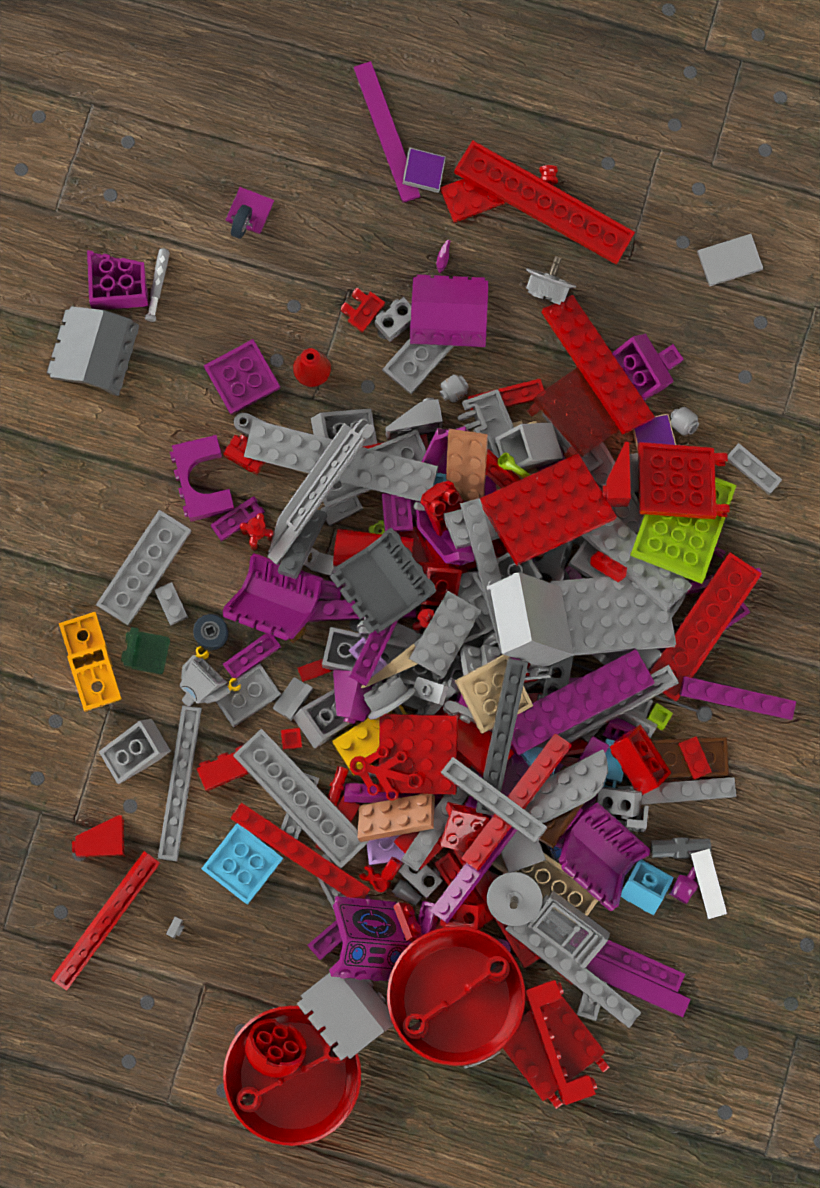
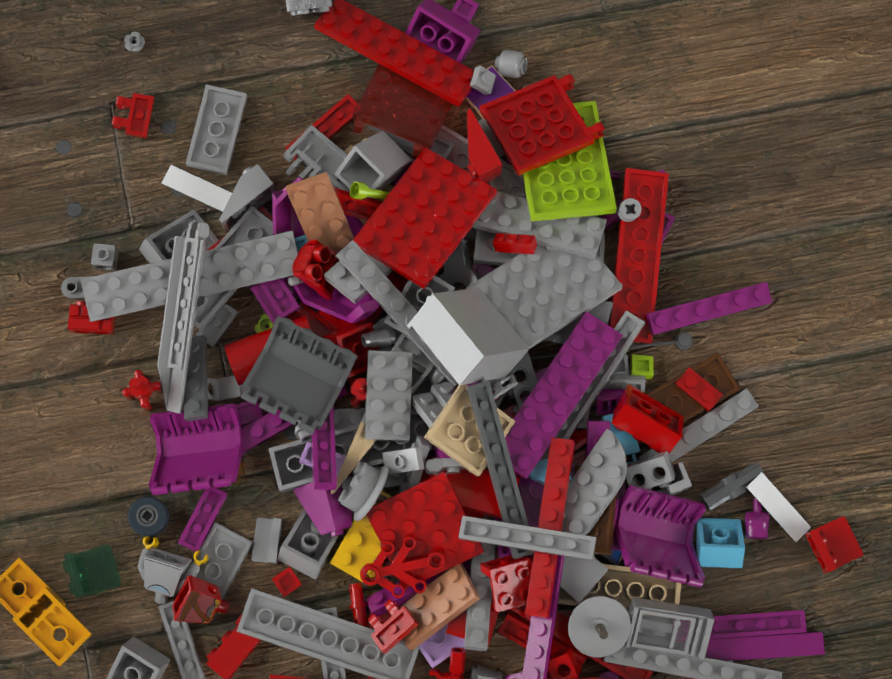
camera: 30 degrees left, 0 degrees up
(143, 567) = (46, 487): light grey plate -> none
(171, 603) = (93, 508): light grey plate -> none
(187, 456) = (33, 352): magenta arch -> none
(215, 717) = (198, 601): none -> red torso
(231, 521) = (111, 394): magenta plate -> none
(241, 377) = (47, 243): magenta plate -> none
(281, 411) = (105, 257): none -> light grey brick
(312, 368) = (113, 198): red cone -> none
(312, 670) = (272, 501): red sticker -> none
(354, 818) = (392, 631): none -> plate
(381, 392) = (196, 188): none -> white sticker
(396, 253) = (134, 47): none -> light grey plate
(399, 322) = (178, 108): light grey brick -> none
(417, 879) = (489, 657): light grey brick -> none
(443, 256) = (188, 23): magenta bar -> none
(449, 311) = (222, 72): magenta hinge -> none
(454, 388) = (267, 147): light grey head -> none
(461, 585) = (381, 337): none -> flat silver cone
(653, 423) = (483, 80): none -> light grey plate
(710, 588) = (625, 213): none -> light grey wheel
(737, 936) = (834, 544): none -> red bracket
(754, 469) = (604, 76): light grey plate -> none

